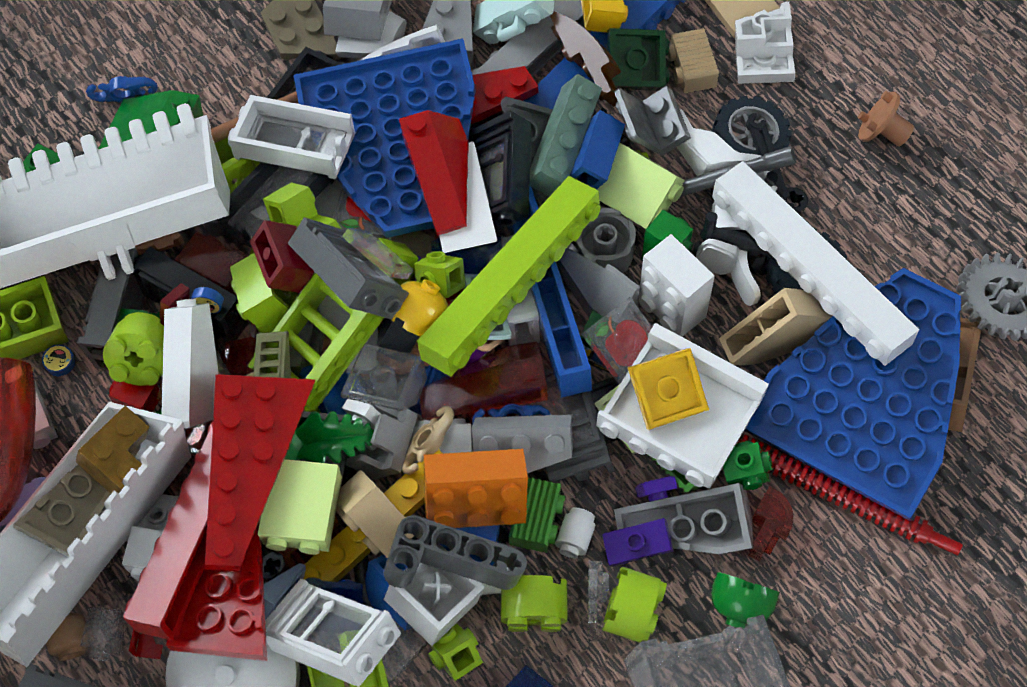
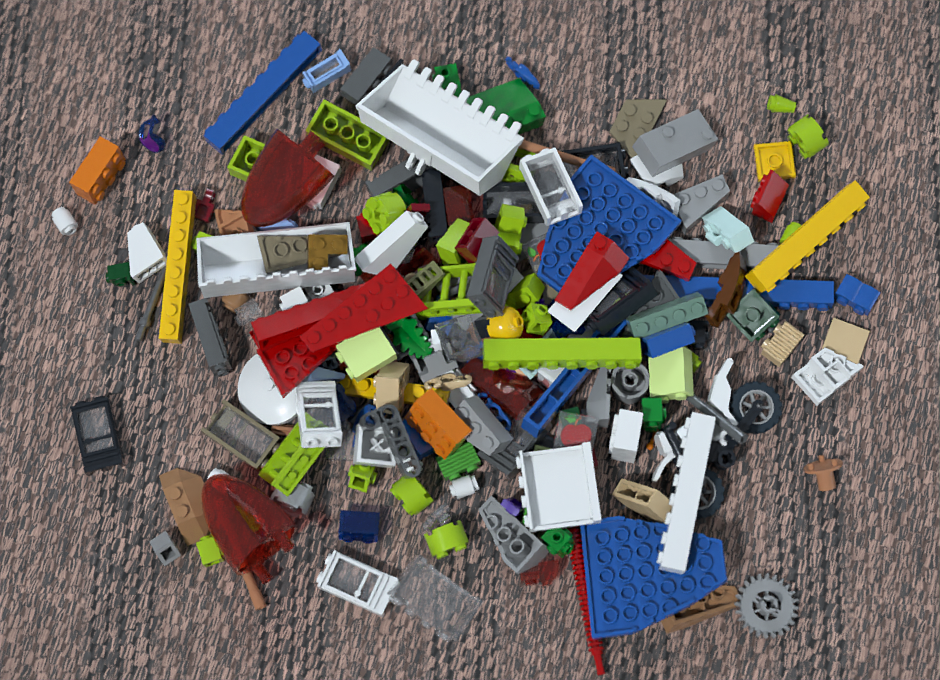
camera: 55 degrees right, 10 degrees up
(58, 360) = (358, 175): tile -> none
(208, 295) = (432, 223): blue tile -> none
(378, 253) = (515, 283): clear tile -> none
(637, 542) = (481, 519): dark purple plate -> none
(654, 121) = (711, 352): dark grey bracket -> none
(668, 388) = (561, 474): yellow tile -> none
(741, 599) = (490, 588): green cylinder -> none

